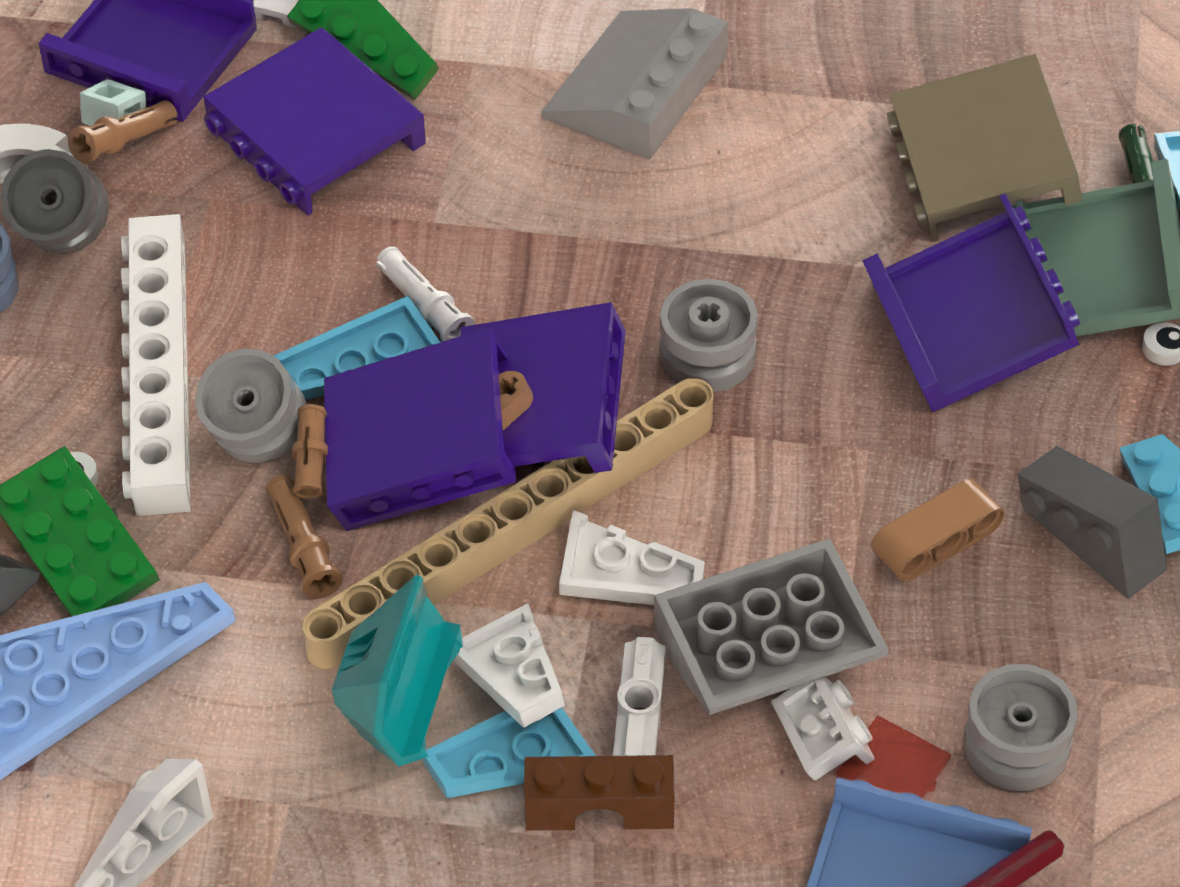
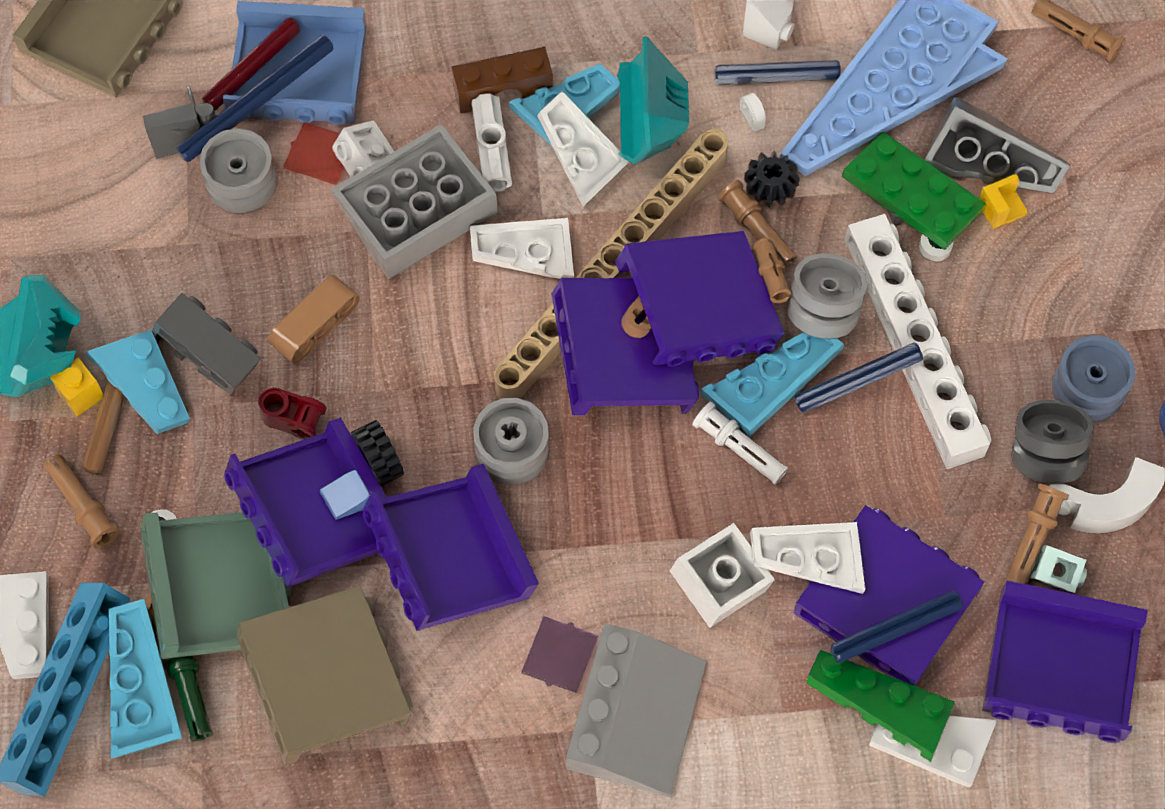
camera: 165 degrees right, 15 degrees up
(187, 739) = (777, 71): none -> axle
(246, 319) = (859, 377): none -> dark blue axle
(248, 686) = (753, 111): none -> white tile
(259, 583) = (771, 179): none -> black gear
(322, 64) = (896, 626): none -> dark blue axle
(386, 138) = (812, 552): none -> white wing
(498, 158) = (721, 575): none -> white brick
(705, 148) = (559, 654): none -> clear purple piece
(815, 235) = (450, 549): none -> dark purple panel
(881, 344) = (378, 452): none -> black tyre
(929, 314) = (345, 495): none -> slope
(979, 806) = (256, 96): none -> dark blue axle
(987, 426) = (297, 415): none -> dark red piece
(1097, 806) = (173, 126): none -> dark grey piece

